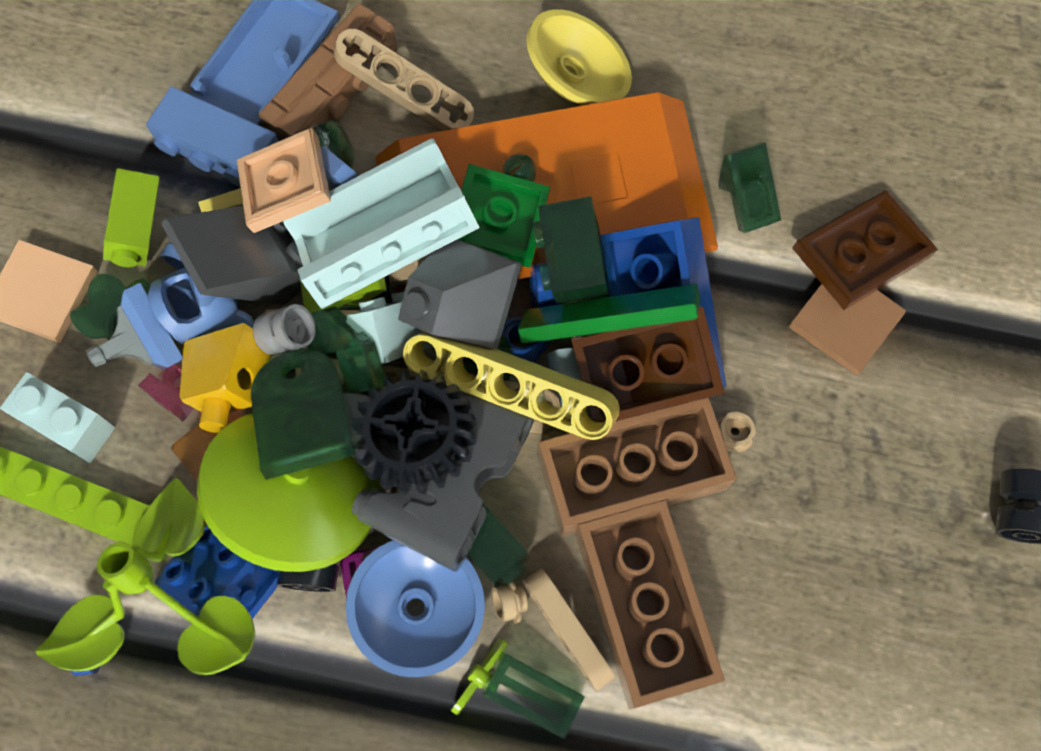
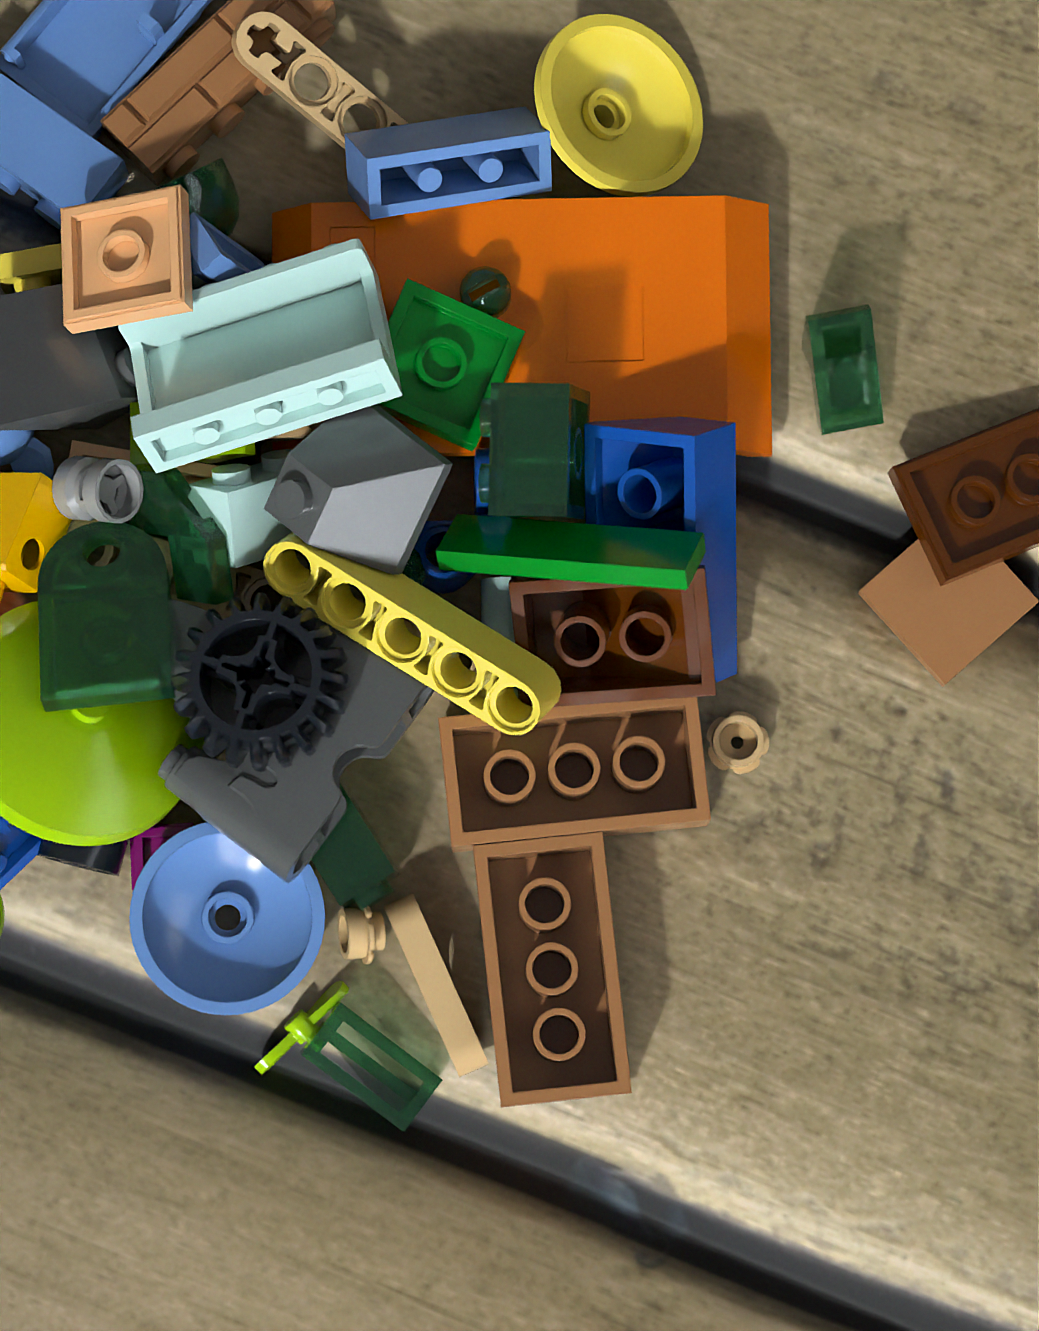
camera: 10 degrees right, 10 degrees up
(481, 101) = (448, 162): none -> medium blue brick

